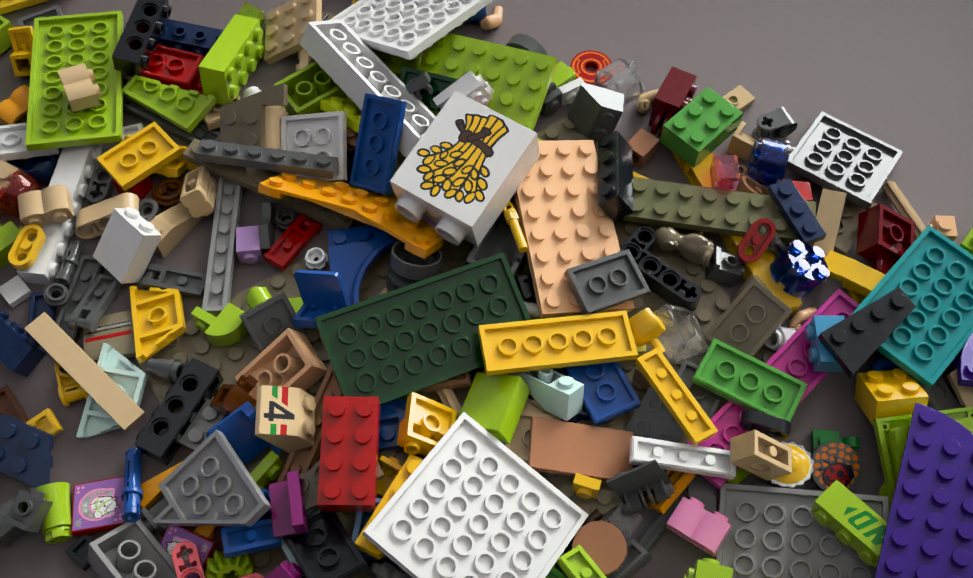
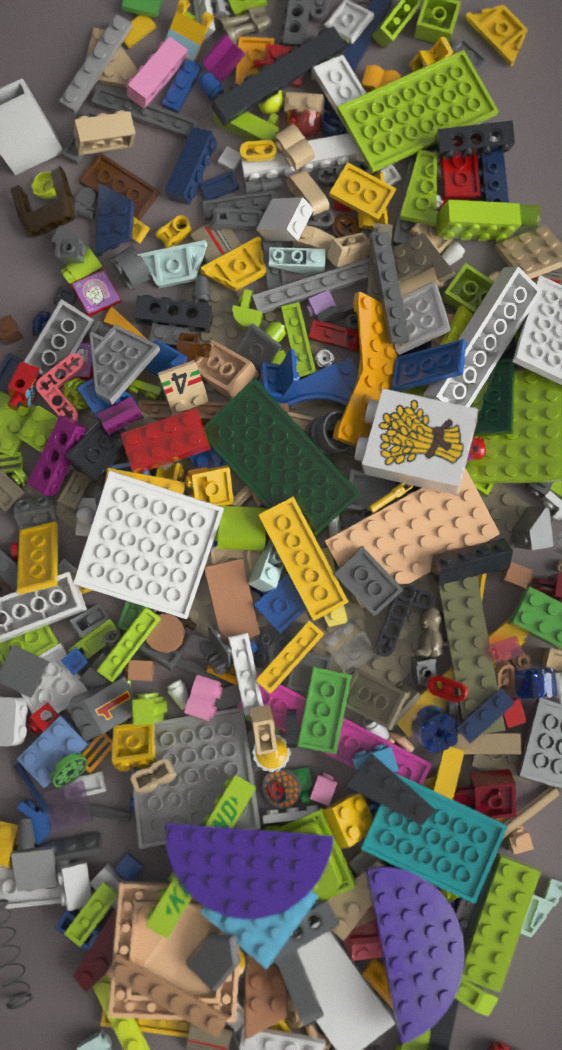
camera: 75 degrees right, 20 degrees up
(53, 289) = (233, 183): dark grey plate -> none
(79, 87) = (402, 118): tan brick -> none
(85, 372) = (179, 237): tan tile -> none
(92, 444) = (131, 267): none -> dark grey brick
(132, 492) = (108, 309): blue pin -> none
(184, 248) = (298, 260): none -> light aqua slope
(269, 276) = (298, 339): none -> lime plate
(419, 83) = (495, 376): dark grey tile -> none
(470, 86) = (492, 420): white plate -> none
(586, 486) = (206, 611): yellow plate -> none
(647, 328) = (340, 622): yellow piece -> none
(679, 560) = (179, 693): none -> white cone
(844, 418) = (323, 788): none -> bright pink brick
(870, 464) = (292, 814): none -> white tile

